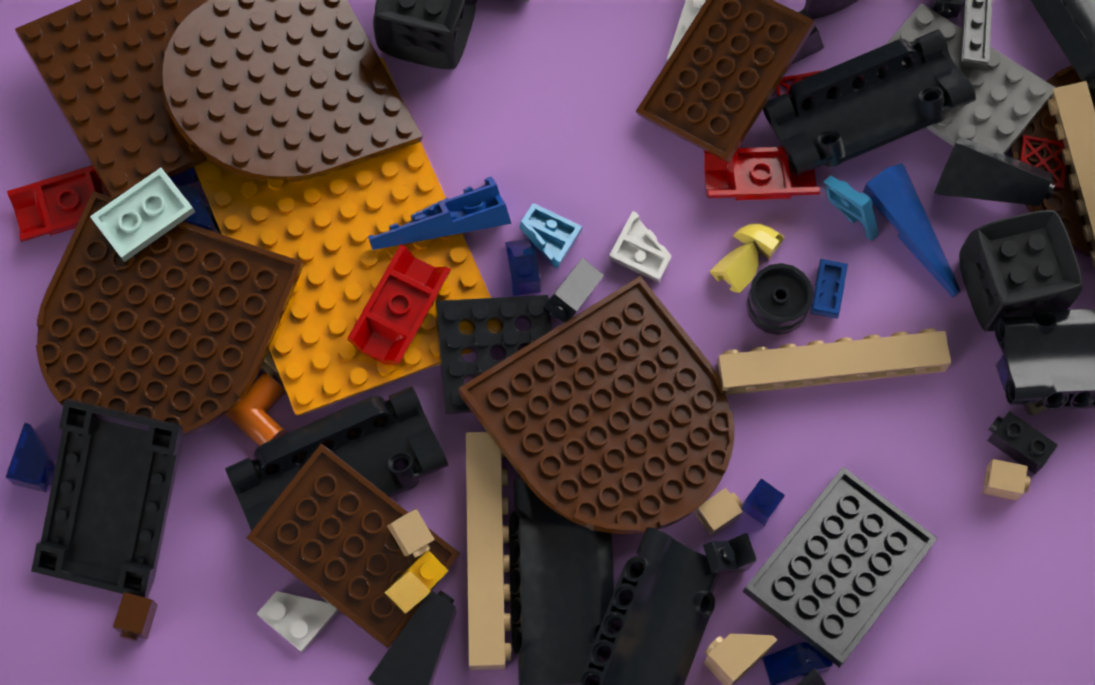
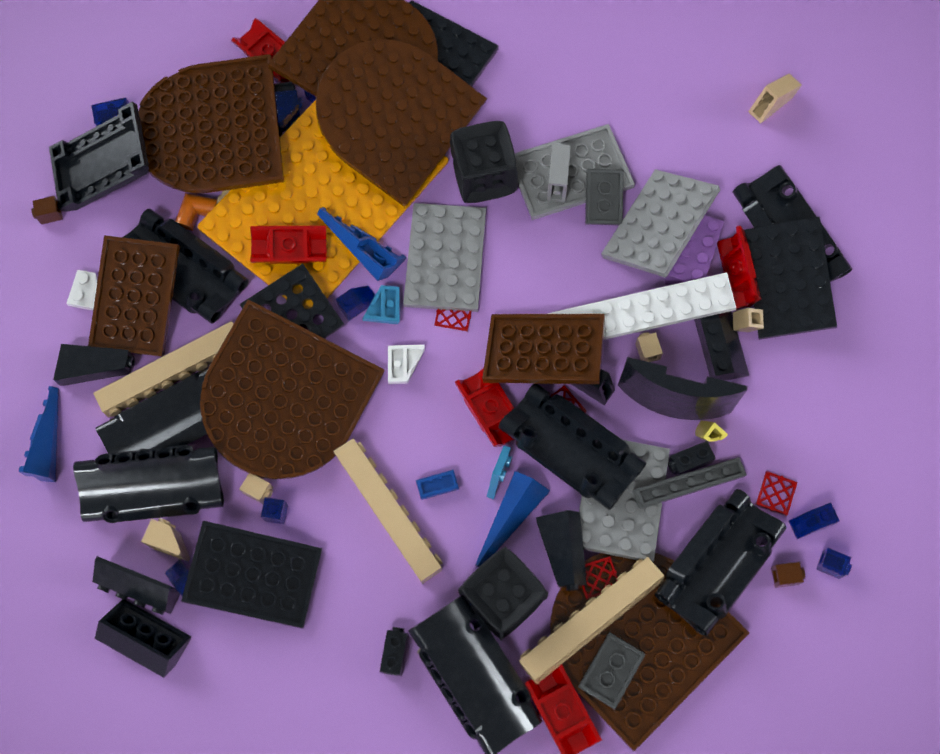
camera: 65 degrees right, 0 degrees up
(142, 214) = (265, 83): light aqua plate -> none
(411, 534) = (152, 321): tan brick -> none
(416, 581) = (131, 340): yellow slope -> none
(519, 129) = (445, 257): none -> light grey plate
(573, 291) = (351, 335): brick -> none
(617, 144) = (468, 316): none -> red window
(730, 555) = (226, 504): black slope -> none
(737, 267) = (421, 424): light yellow brick -> none
(764, 238) = (450, 429): light yellow brick -> none
(776, 283) = (410, 468): black wheel -> none
(1006, 480) = (363, 654): tan brick -> none

